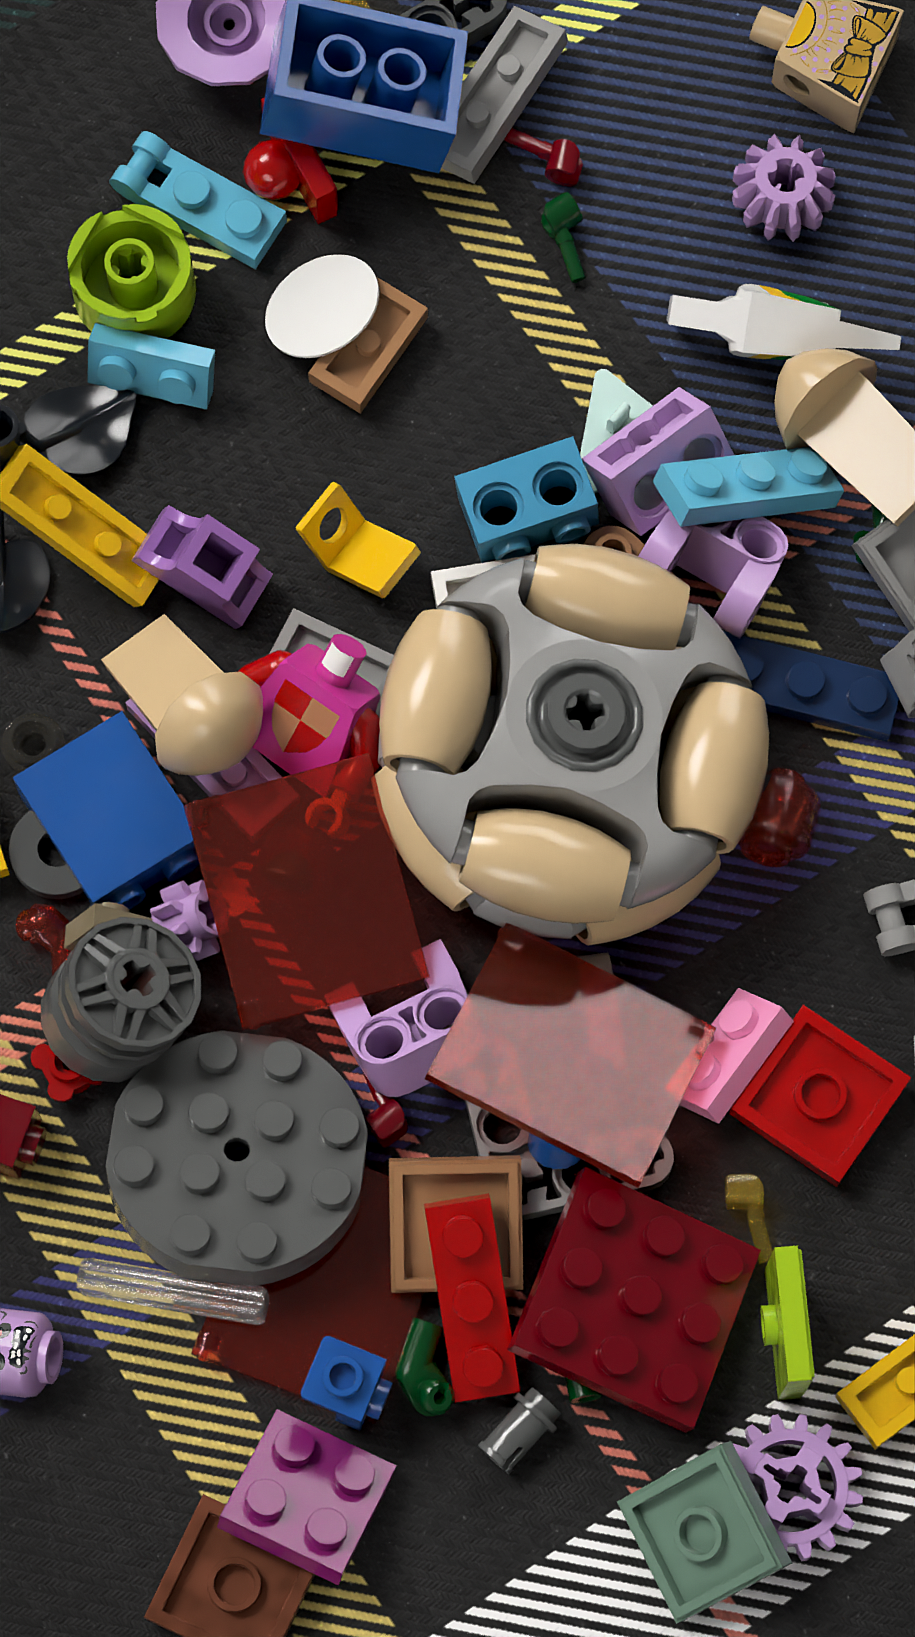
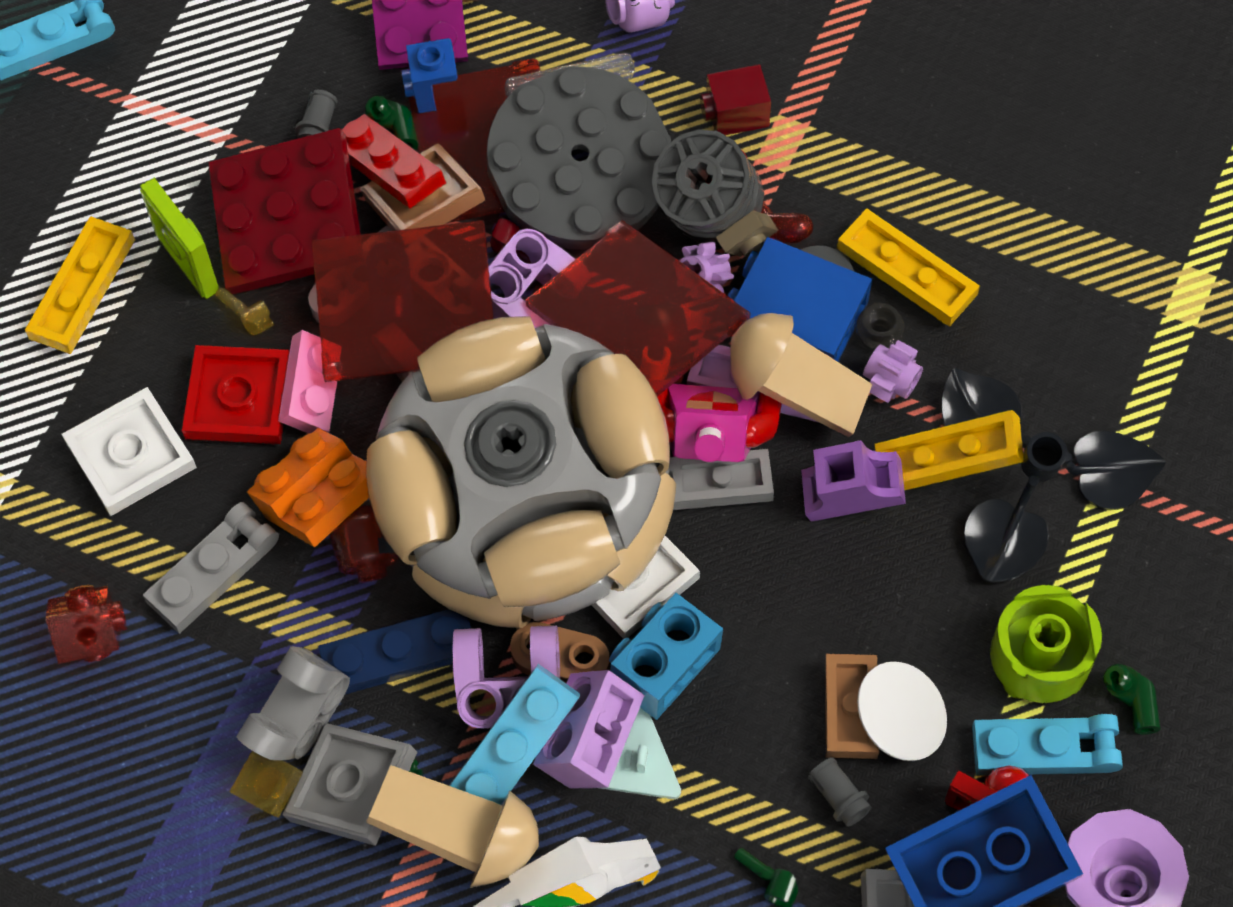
camera: 150 degrees right, 10 degrees down
(63, 670) = (893, 371): none -> lavender gear
(68, 193) = (1136, 693): none -> dark green arm
(151, 366) = (965, 601): medium azure plate -> none
(359, 548) = (759, 562): yellow bracket -> none
(439, 269) = (840, 792): none -> dark grey pin
(704, 1532) = (171, 116): sand green tile -> none
(797, 905) = (312, 487): none -> orange plate
(818, 1504) = (129, 162): lavender gear -> none

